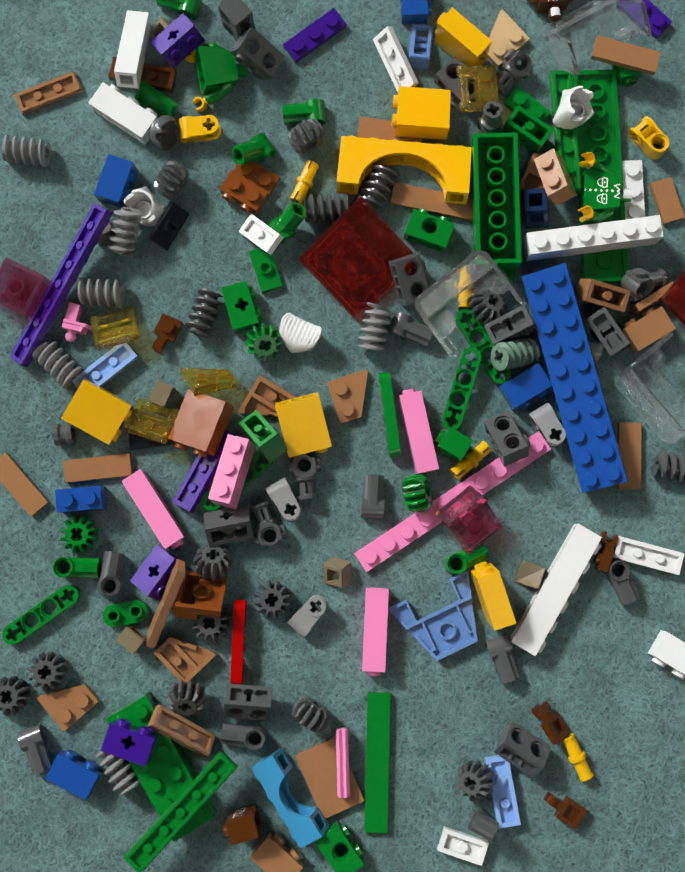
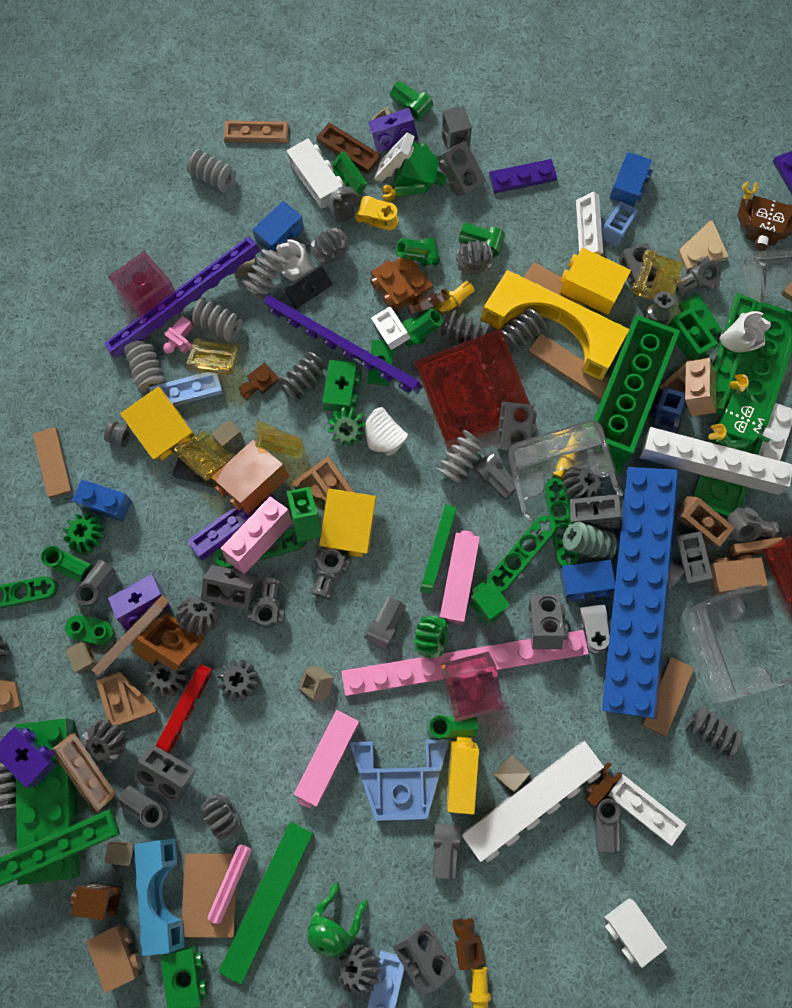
camera: 25 degrees right, 10 degrees down
(97, 468) = (133, 479): medium nougat tile -> none
(132, 49) = (348, 121): white brick -> none
(154, 510) = (166, 541): bright pink brick -> none
(193, 69) = (395, 157): none -> white plate
(234, 271) = (348, 348): none -> dark purple plate
(243, 779) = (119, 853): none -> dark tan slope
(282, 496) = (296, 584): light grey piece -> none
(284, 195) = (428, 301): none -> reddish brown tile
(307, 618) = (263, 713): light grey piece -> none
(348, 395) = (406, 514): medium nougat wing -> none
(416, 233) = (559, 402): green brick -> none
(440, 768) = (326, 936): none -> green hair
(461, 39) = (661, 228): yellow brick -> none
(471, 460) = (501, 629): yellow pin -> none

